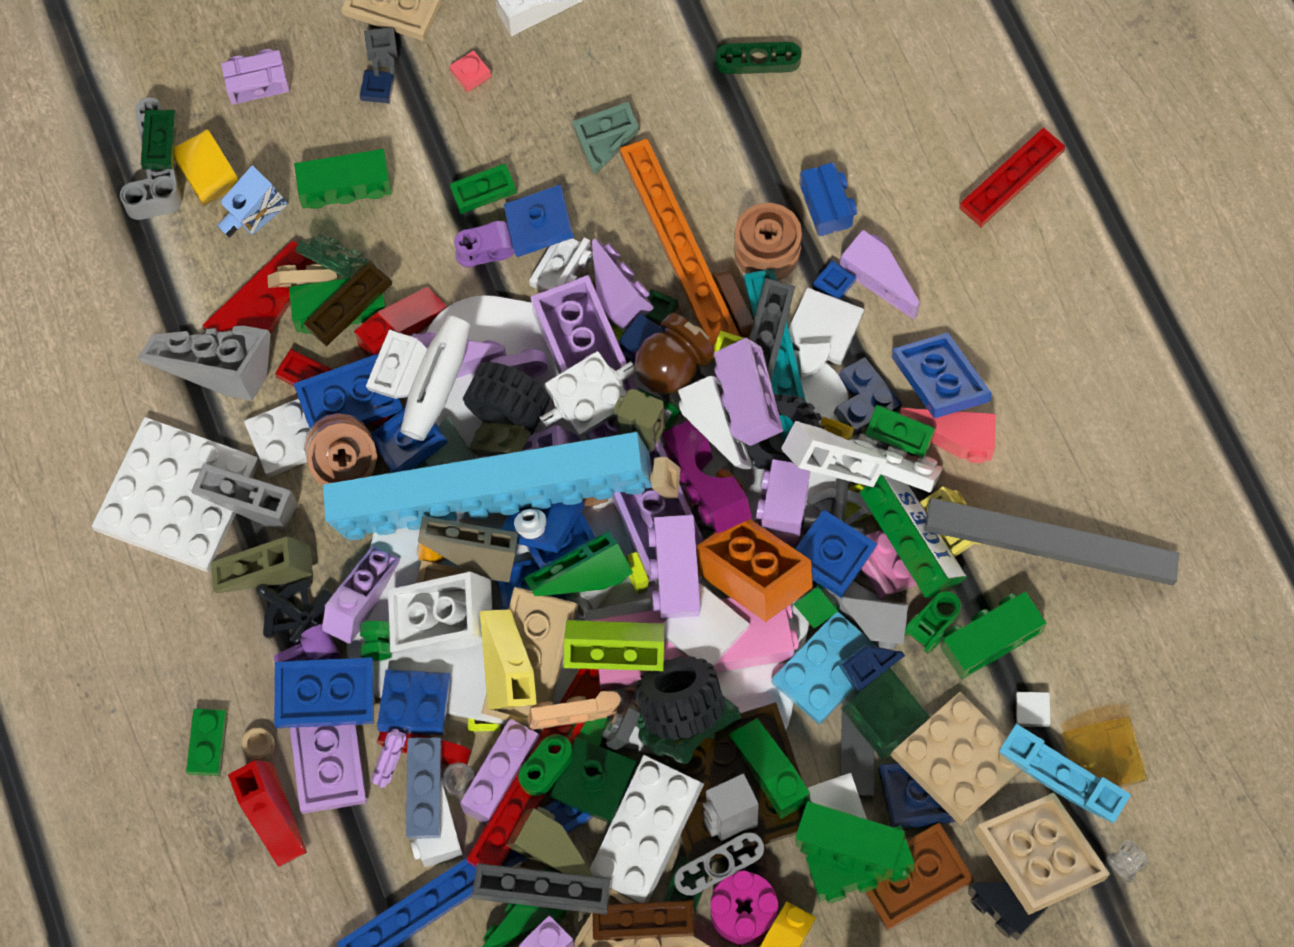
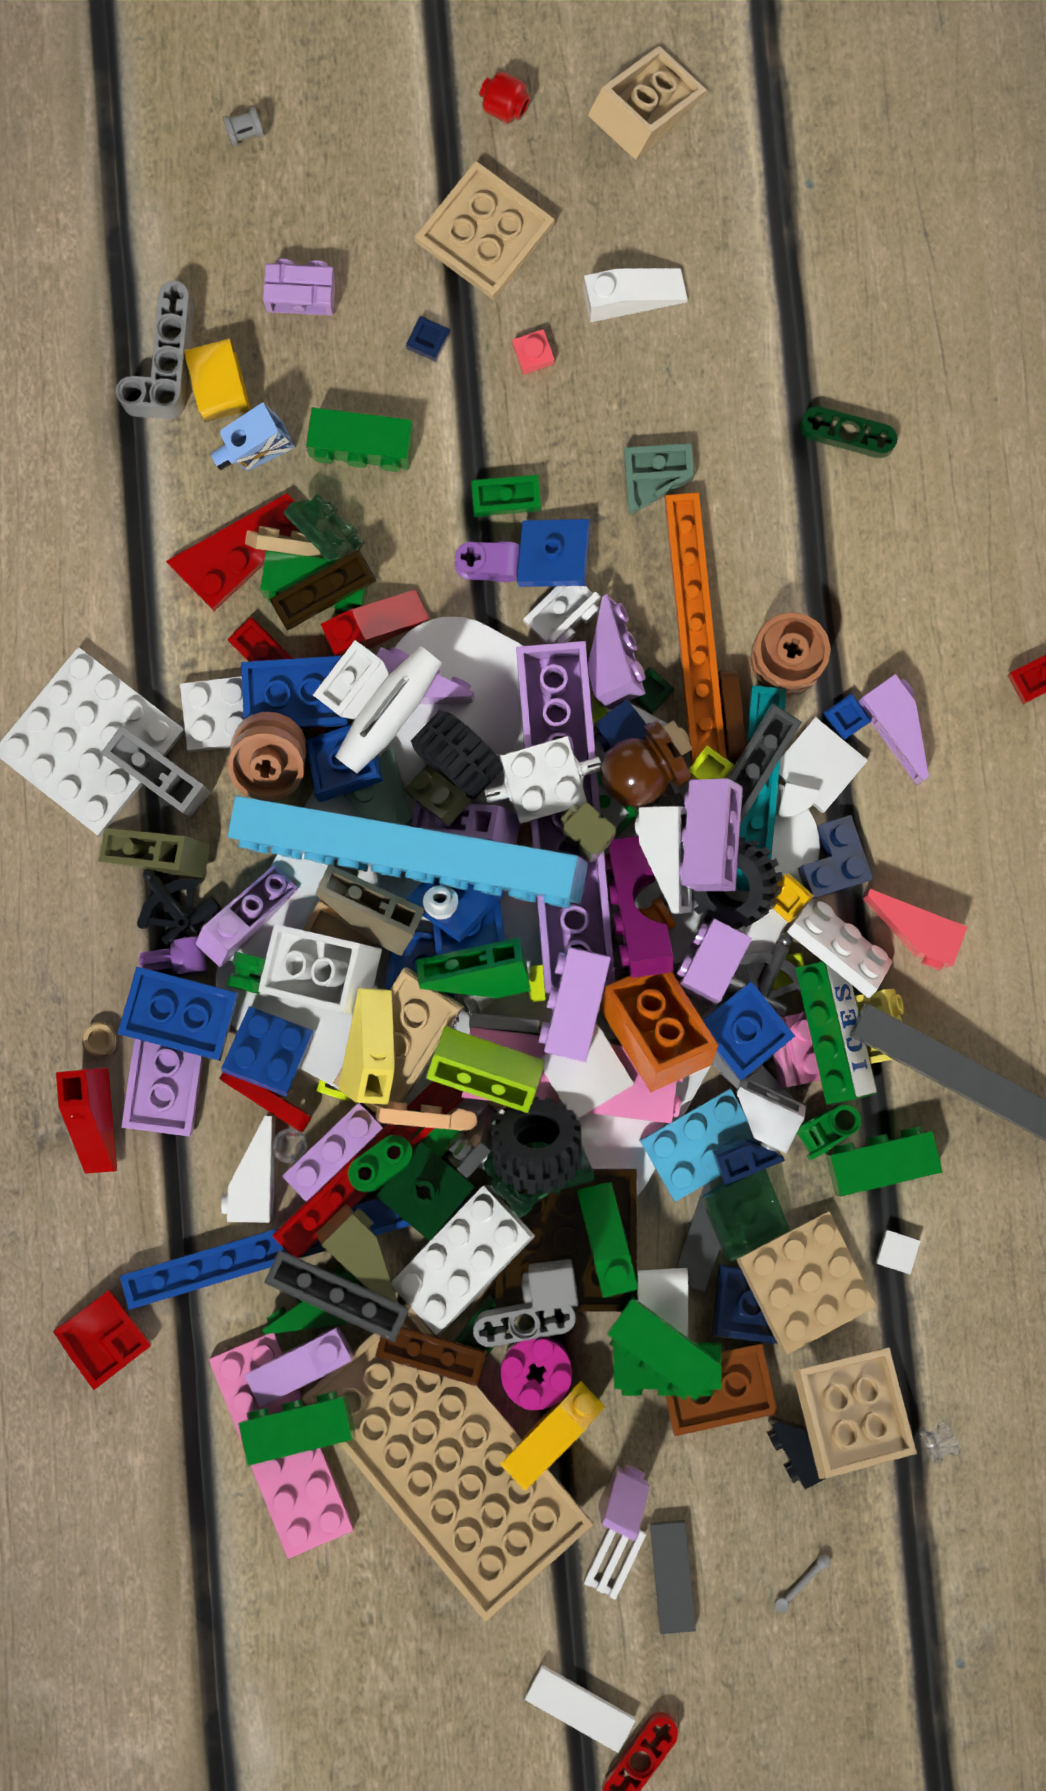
camera: 15 degrees right, 15 degrees up
(158, 139) = (173, 337): dark green plate -> none
(206, 742) = (48, 1021): green plate -> none
(221, 361) = (175, 608): light grey wedge -> none
(381, 48) = (444, 297): dark grey plate -> none
(388, 758) = (225, 1102): lavender axle -> none
(423, 788) = (250, 1149): sand blue plate -> none
(528, 361) = (492, 716): lavender plate -> none
(665, 477) = (595, 901): tan plate -> none
(817, 605) = (714, 1079): green tile -> none
(826, 199) = (869, 622): blue brick -> none
(832, 455) = (776, 932): white slope -> none
(900, 431) = (861, 914): green plate -> none
(941, 375) = (924, 865): blue plate -> none
(1063, 775) = (906, 1339): medium azure slope -> none
(1107, 751) = (954, 1325): clear yellow slope -> none

